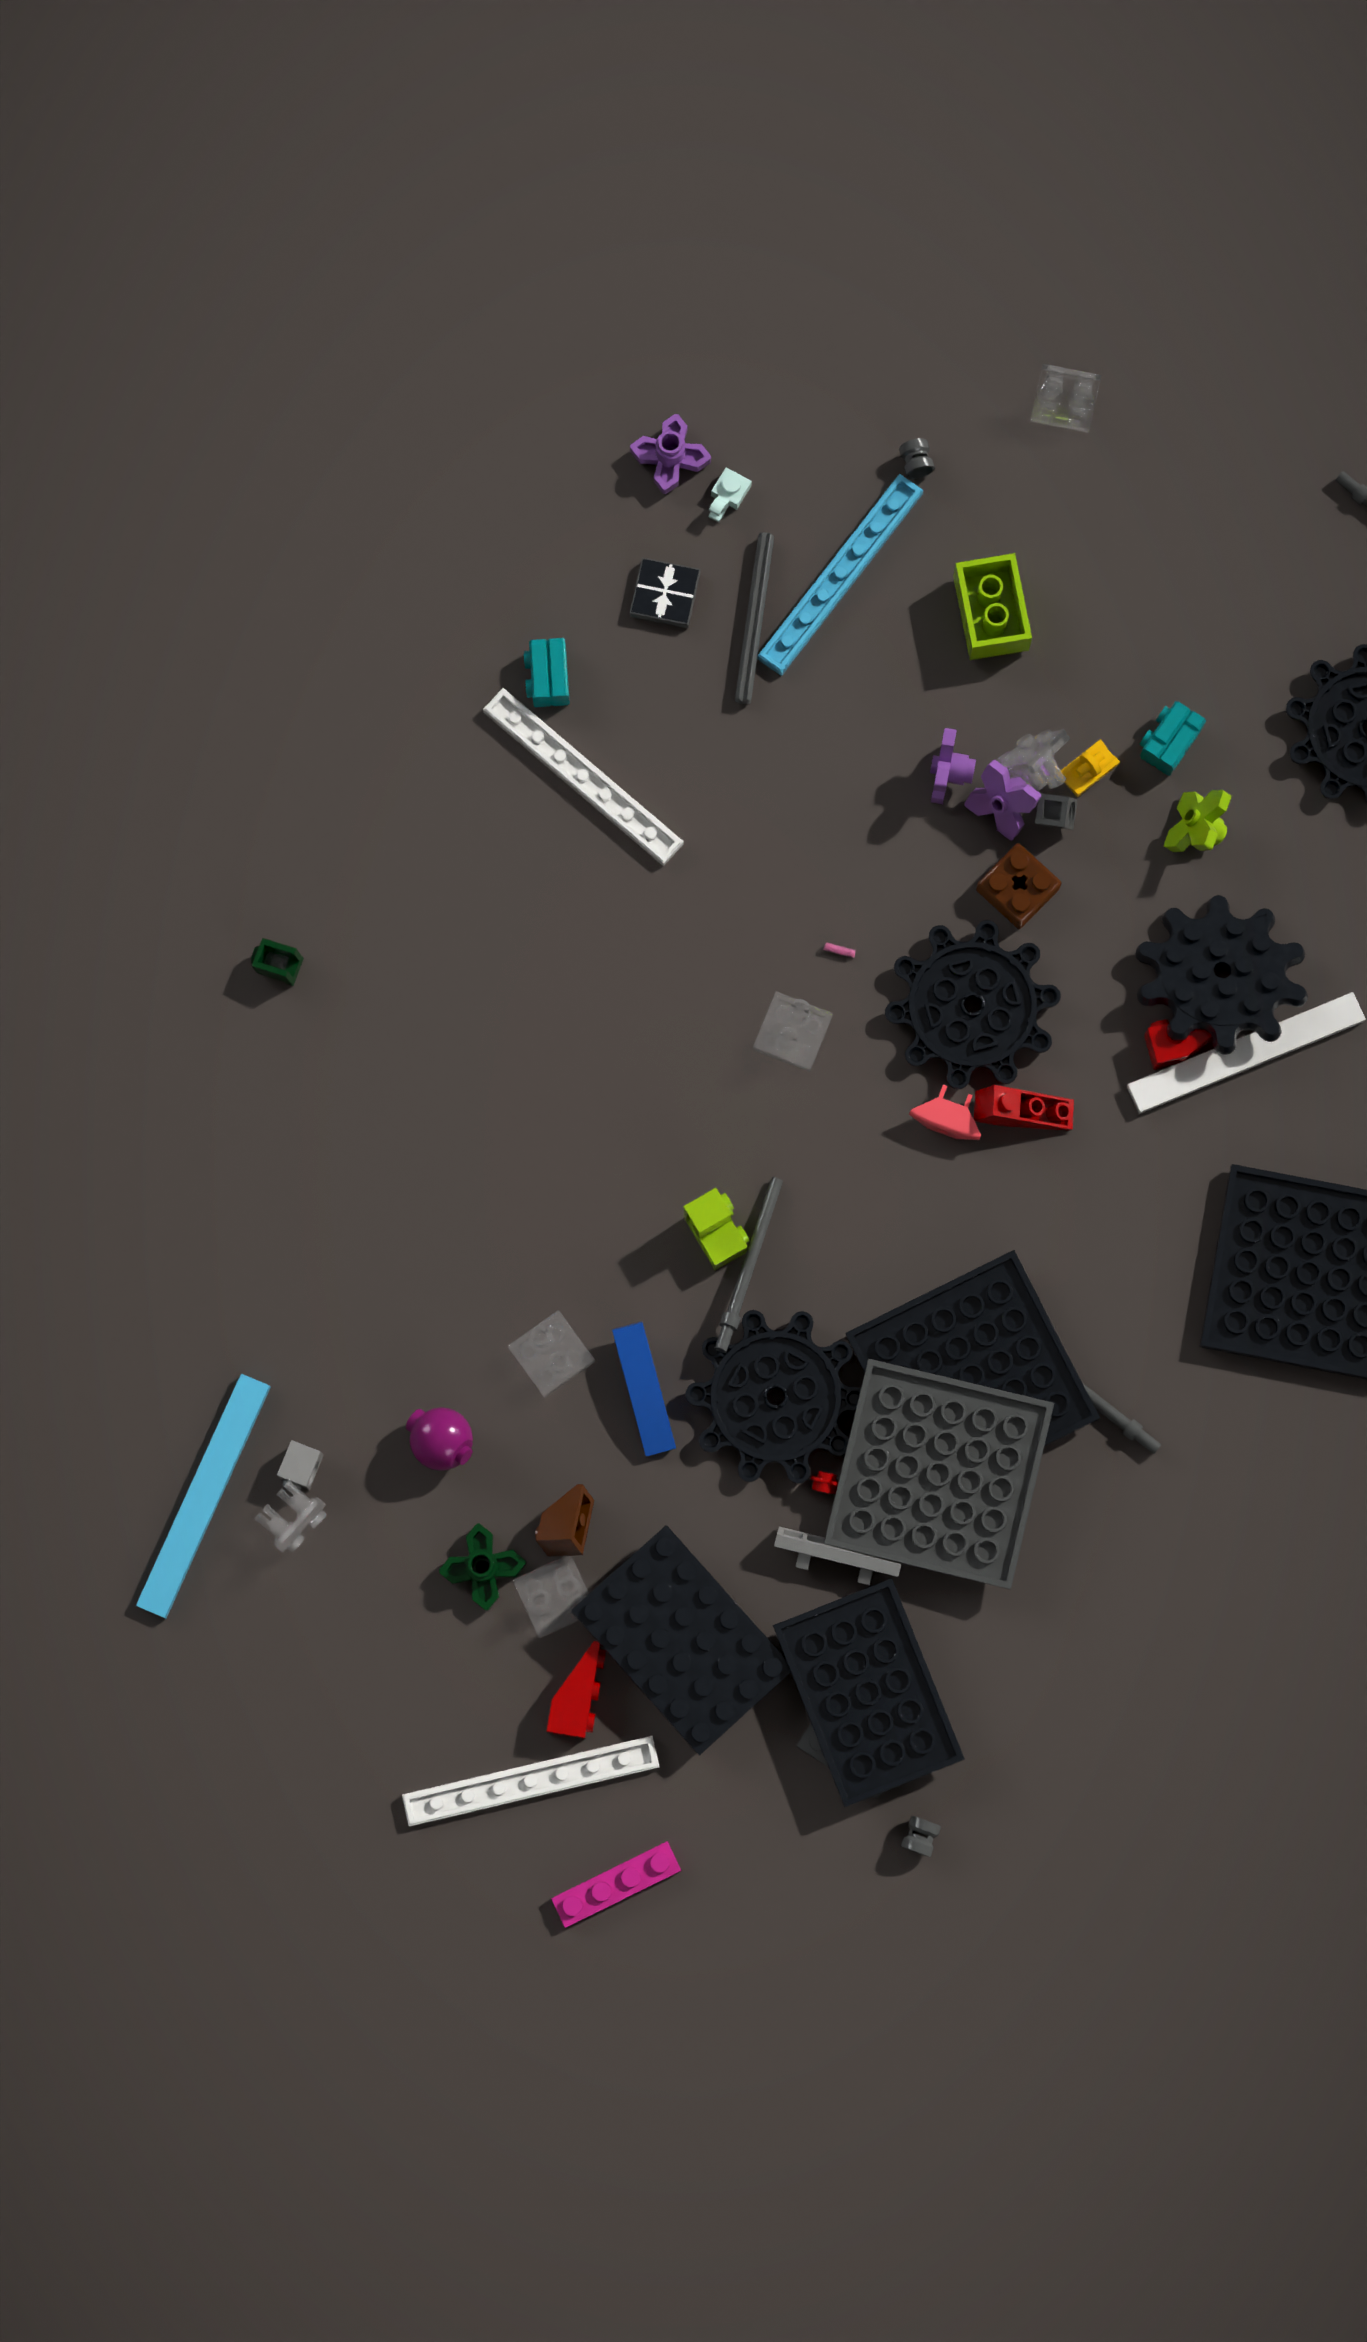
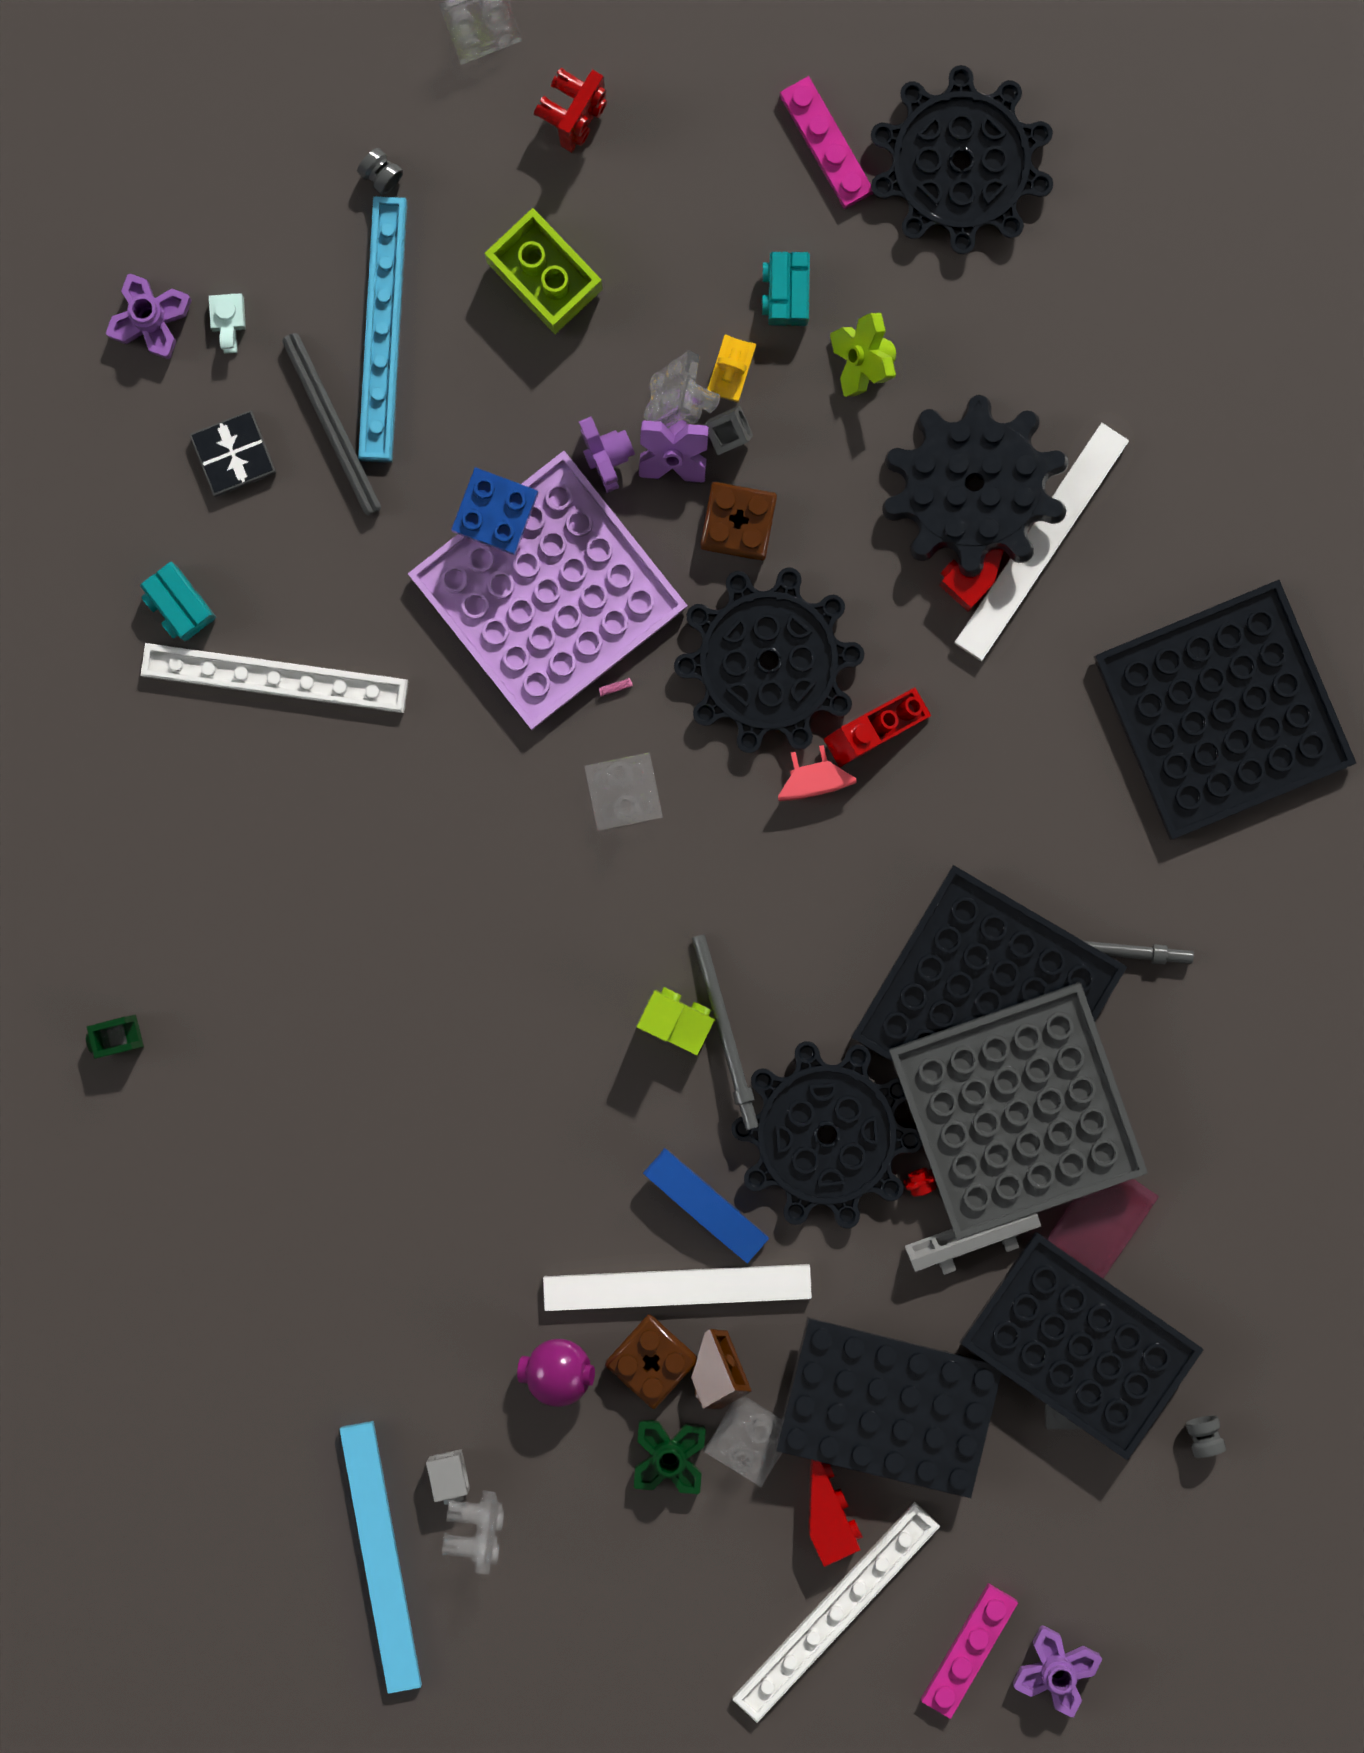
camera: 30 degrees left, 10 degrees up
(506, 1499) = (653, 1383): none -> reddish brown brick
(551, 1353) = (603, 1228): clear plate -> none
(578, 1440) = (677, 1287): none -> white tile
(658, 1942) = (1040, 1676): none -> medium lavender plant
(835, 753) = (495, 511): none -> blue plate
(836, 844) = (561, 605): none -> lavender plate
(951, 1611) = (1102, 1224): none -> clear pink piece
(1105, 506) = (587, 103): none -> red plate
(1274, 650) = (826, 142): none -> dark pink plate

